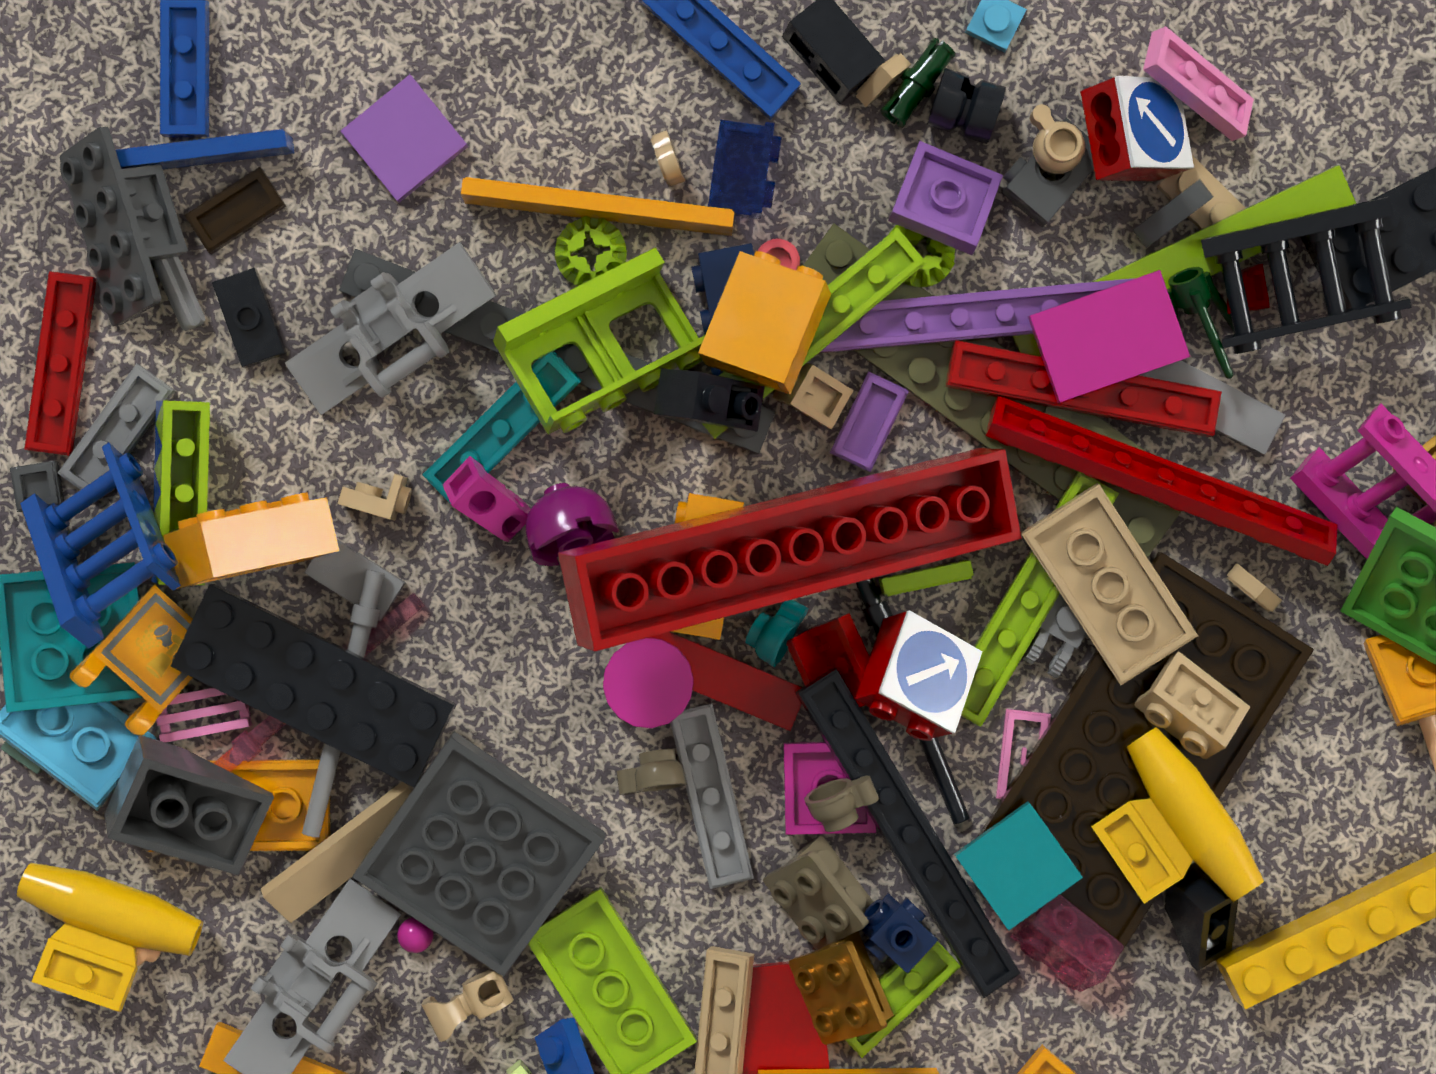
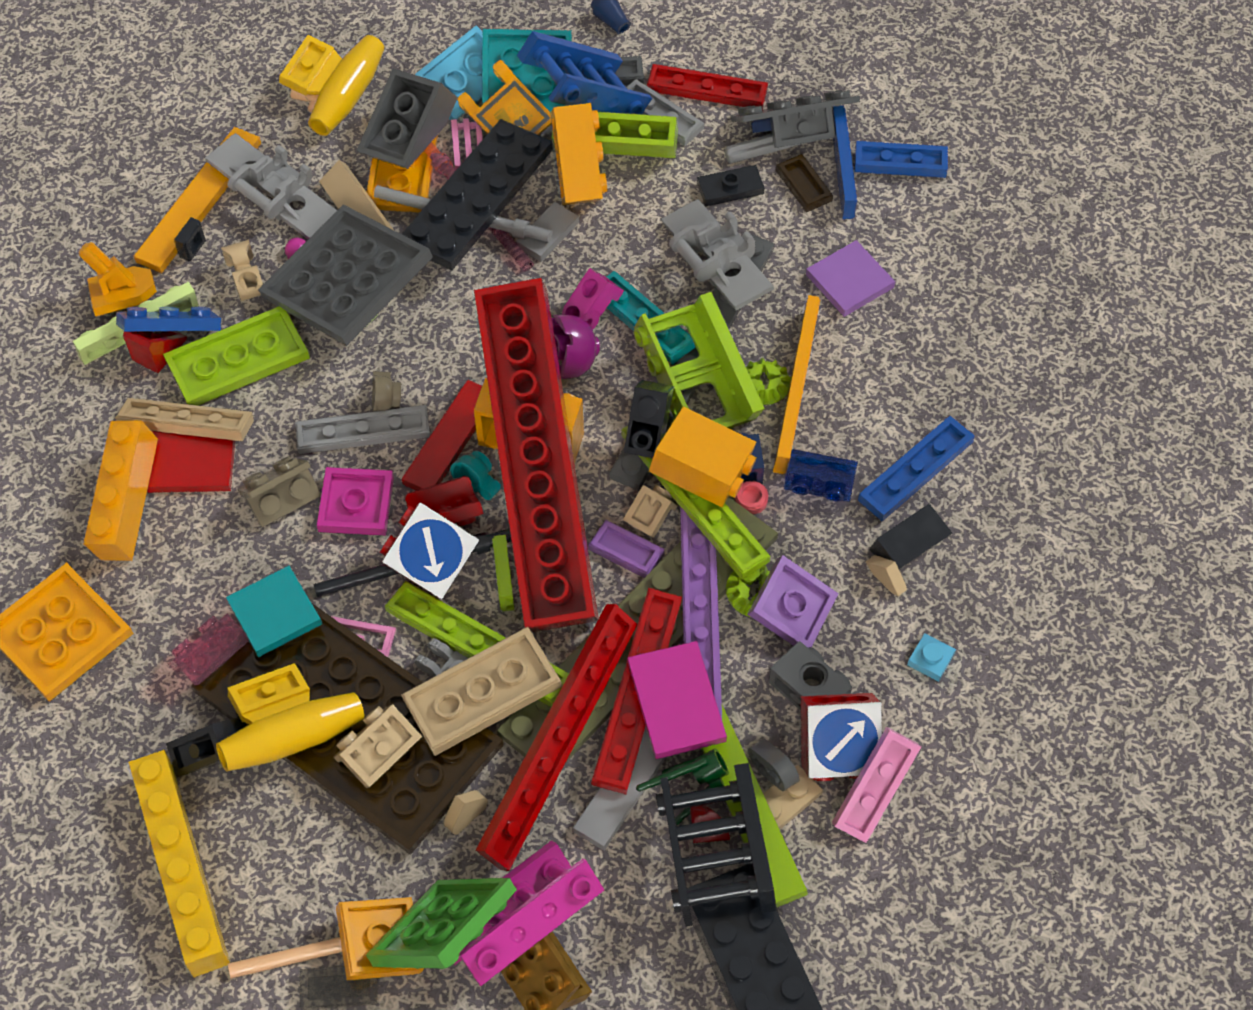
camera: 90 degrees right, 30 degrees down
(369, 500) = (598, 243): tan bracket -> none
(648, 683) = (449, 388): dark pink tile -> none
(667, 158) = (829, 428): tan tile -> none
(837, 801) = (342, 493): dark tan piece -> none
(841, 990) = (205, 492): pearl gold bracket -> none
(897, 932) = (240, 531): dark blue brick -> none
(908, 991) = (193, 537): lime tile -> none
(909, 834) = (311, 544): black tile -> none
(918, 82) = (883, 596): dark green pin -> none
(966, 106) = (864, 623): black wheel -> none
(1057, 144) = (830, 673): tan piece -> none

